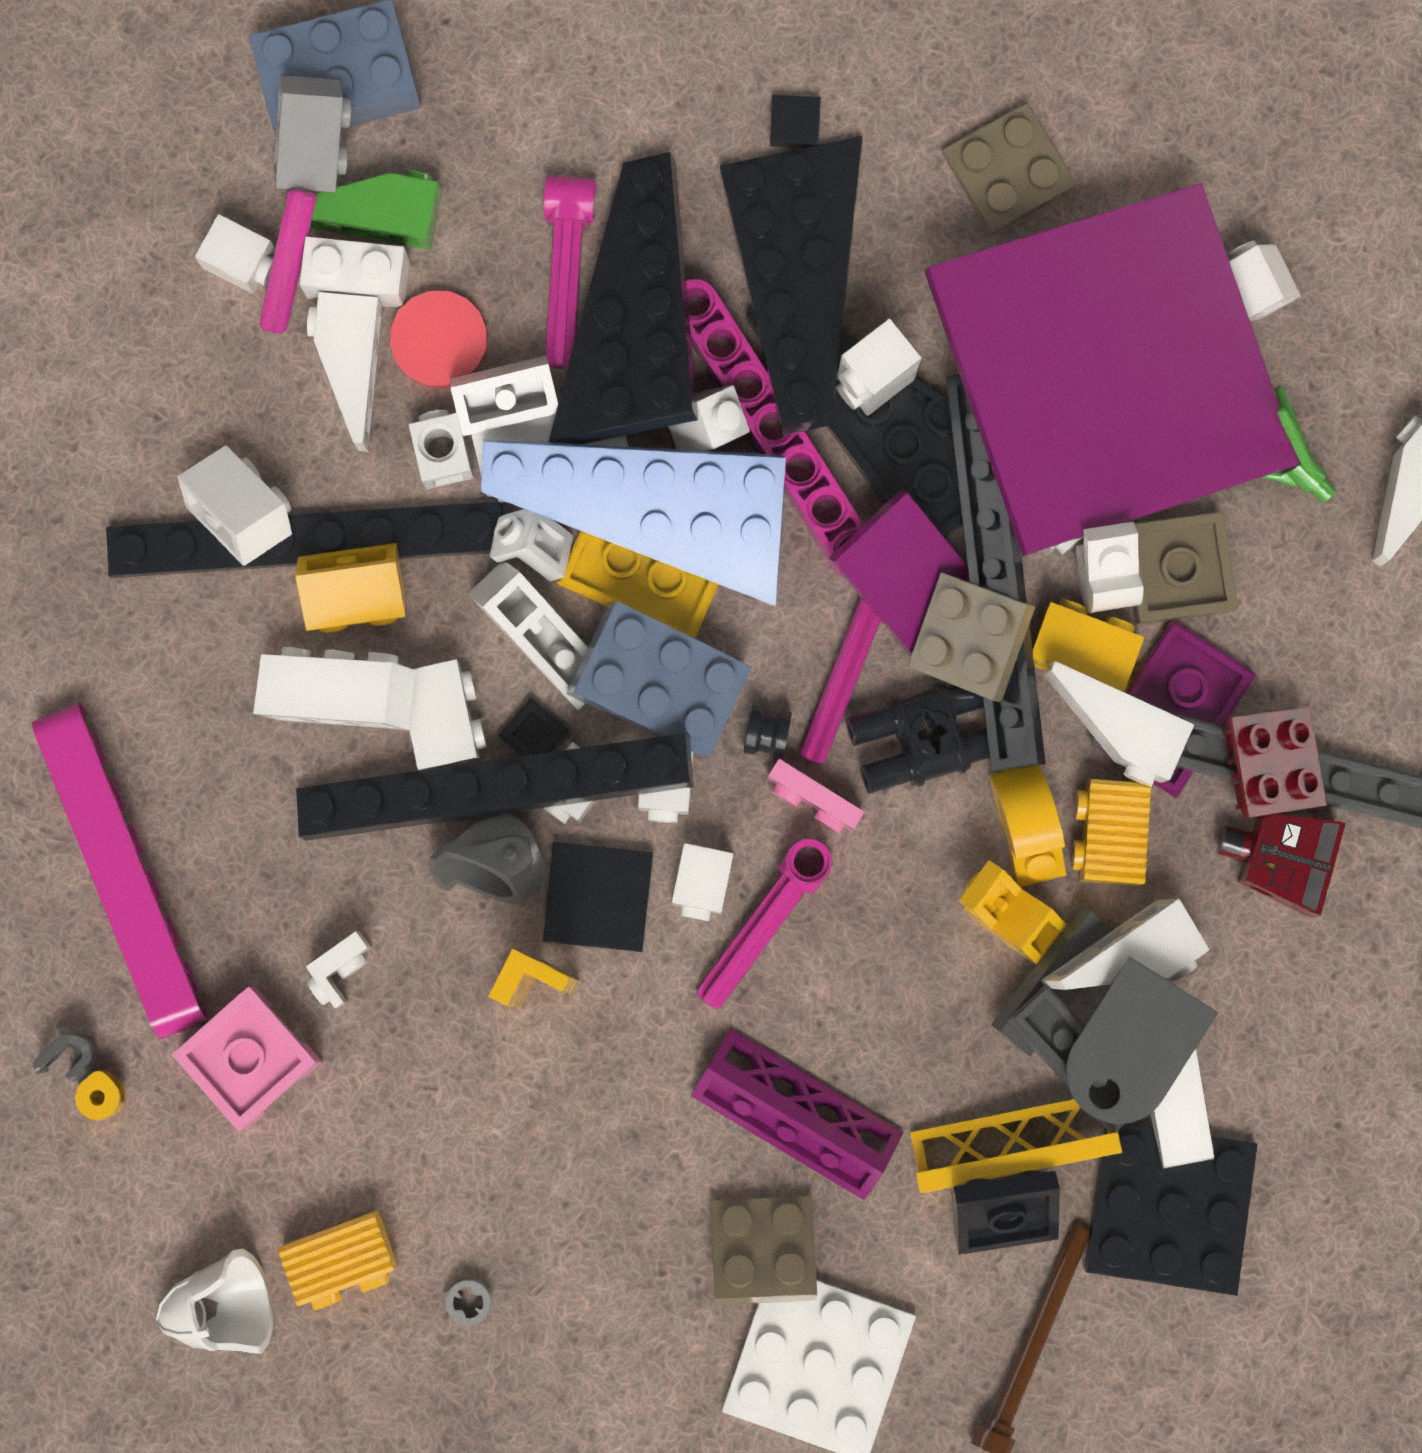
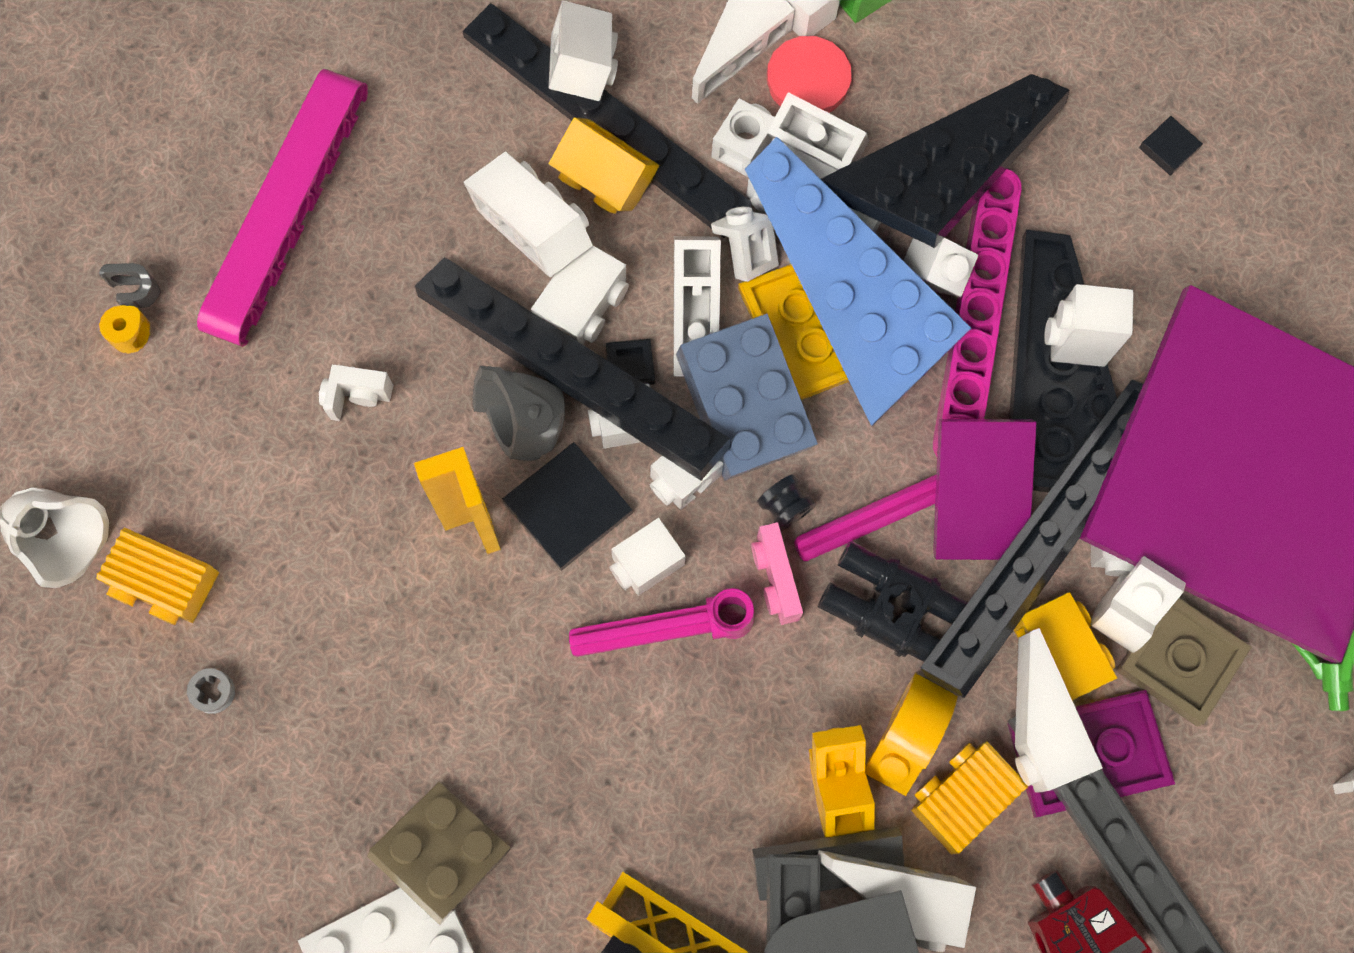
camera: 40 degrees right, 10 degrees down
(246, 1058) = (235, 388): bright pink panel -> none
(569, 209) = (967, 71): dark pink axle -> none
(793, 1121) = (547, 781): magenta fence -> none
(795, 251) = (1093, 223): black wing -> none
(971, 637) = (992, 562): dark tan plate -> none
(1009, 169) = (1296, 293): dark tan plate -> none
(1275, 762) = (1136, 856): hinge -> none

